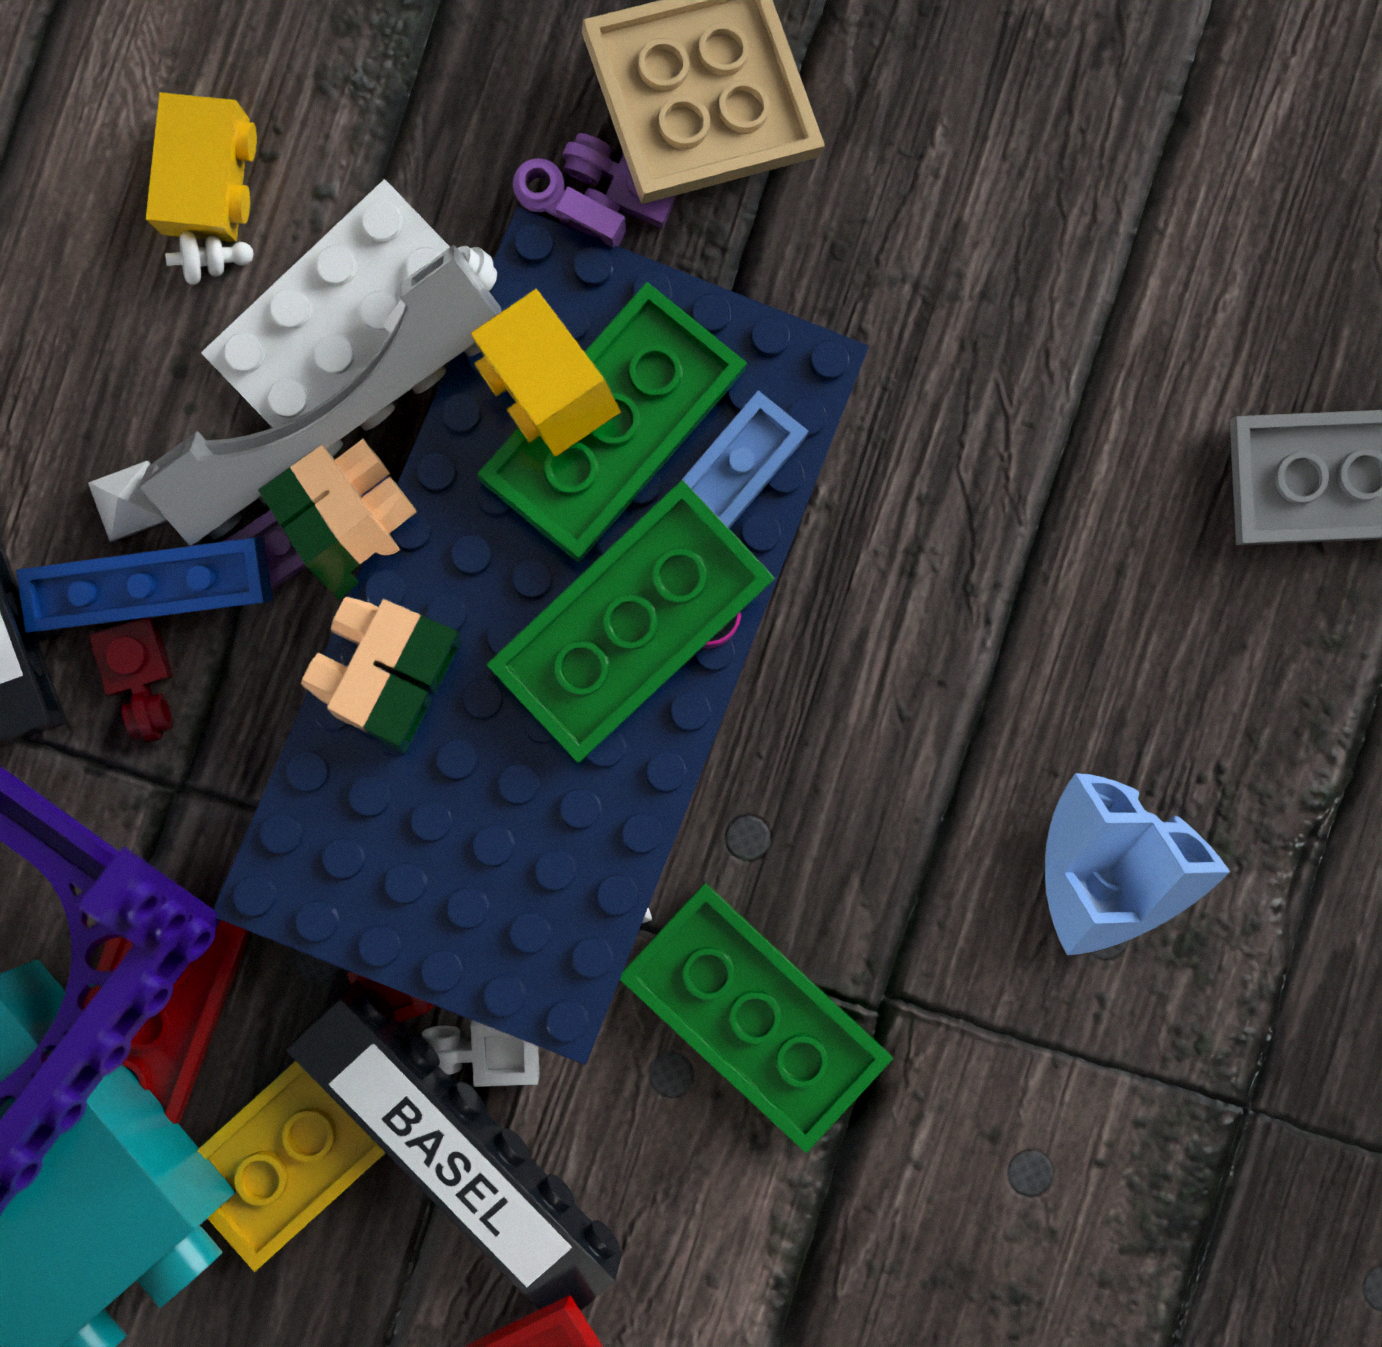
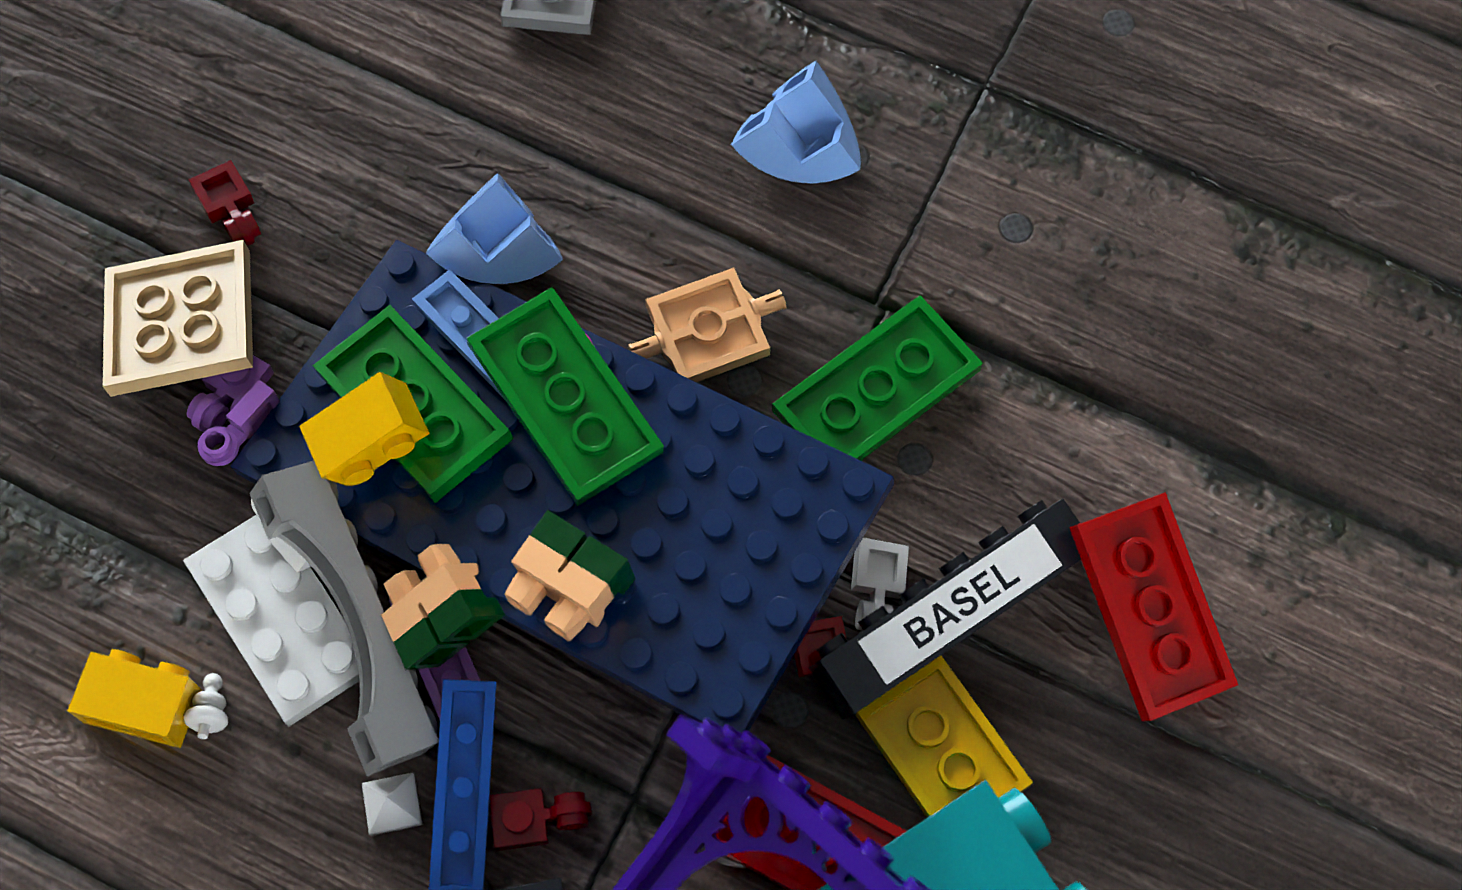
camera: 80 degrees left, 20 degrees down
(806, 781) = (708, 326): none -> light nougat plate
(886, 476) = (494, 239): none -> light blue brick
(898, 101) = (223, 195): none -> dark red plate

